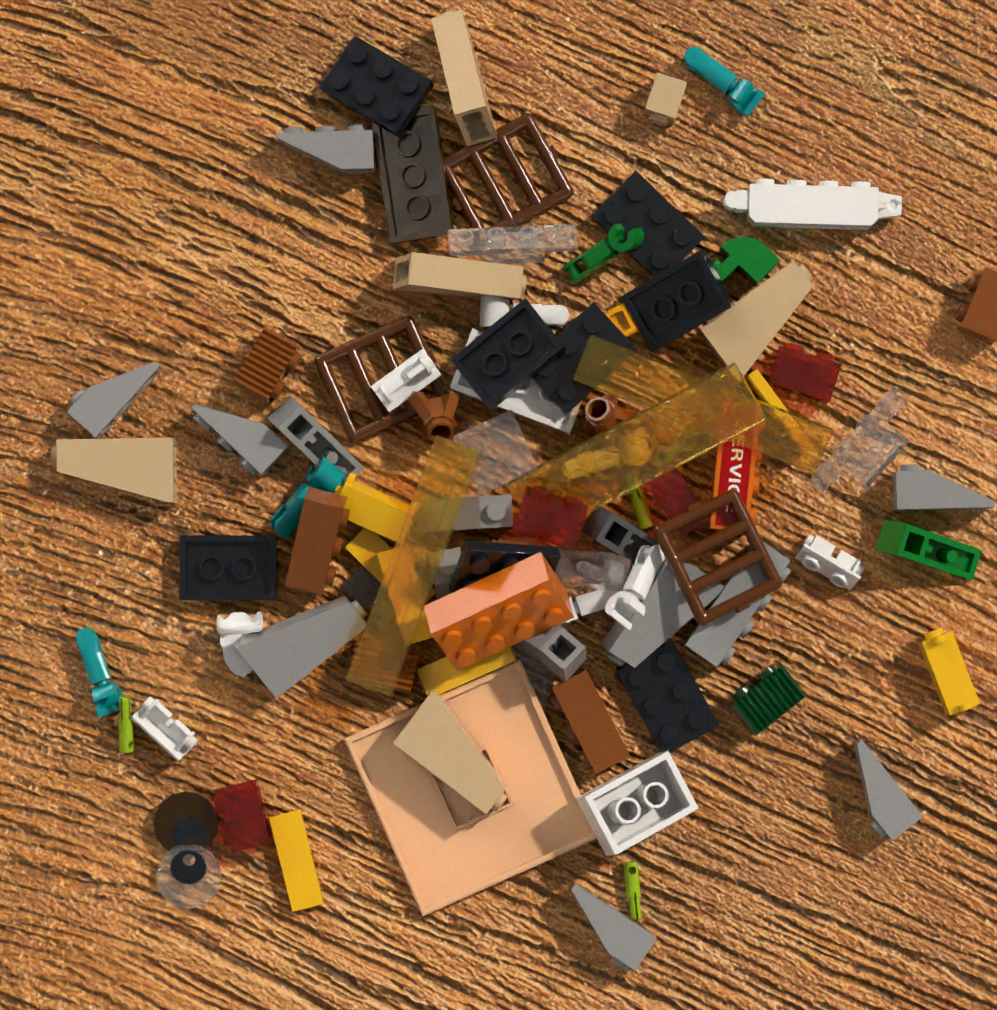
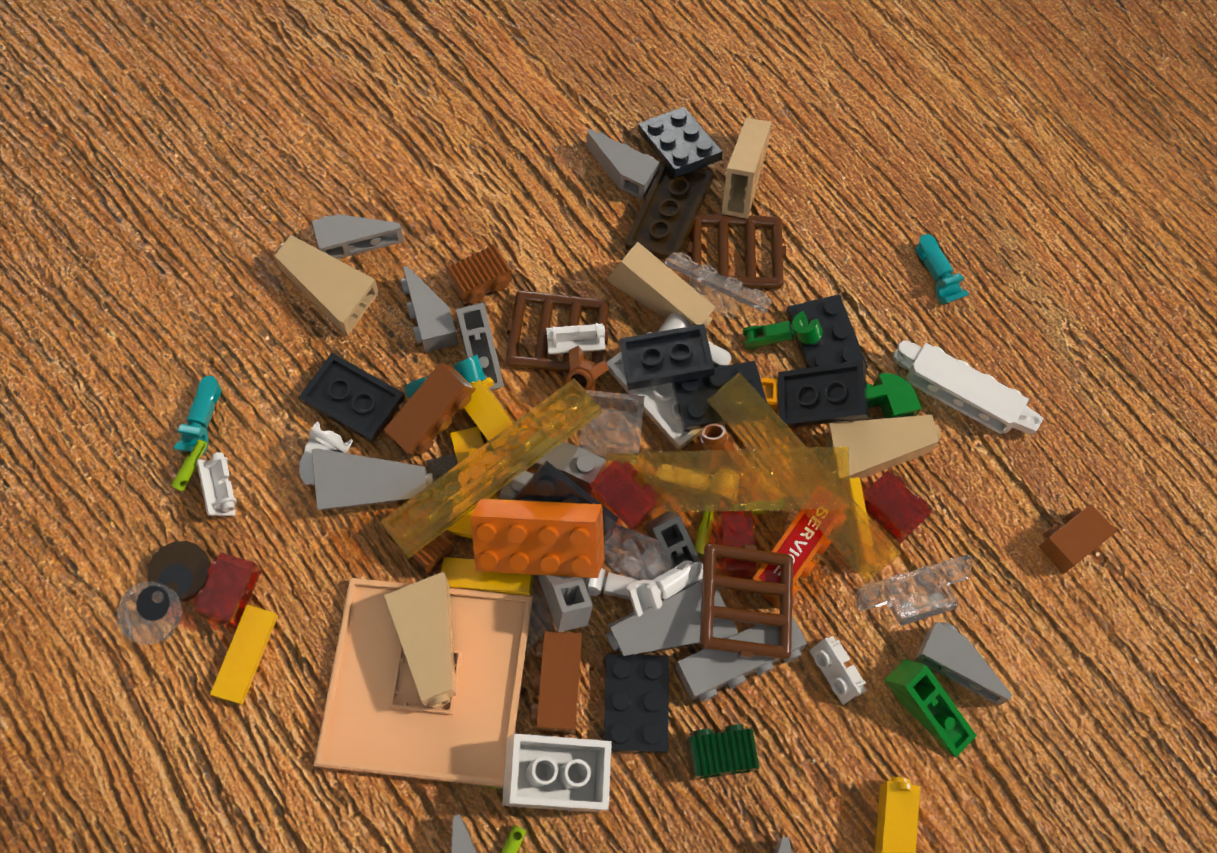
camera: 20 degrees right, 20 degrees down
(665, 99) = (889, 258): tan brick -> none

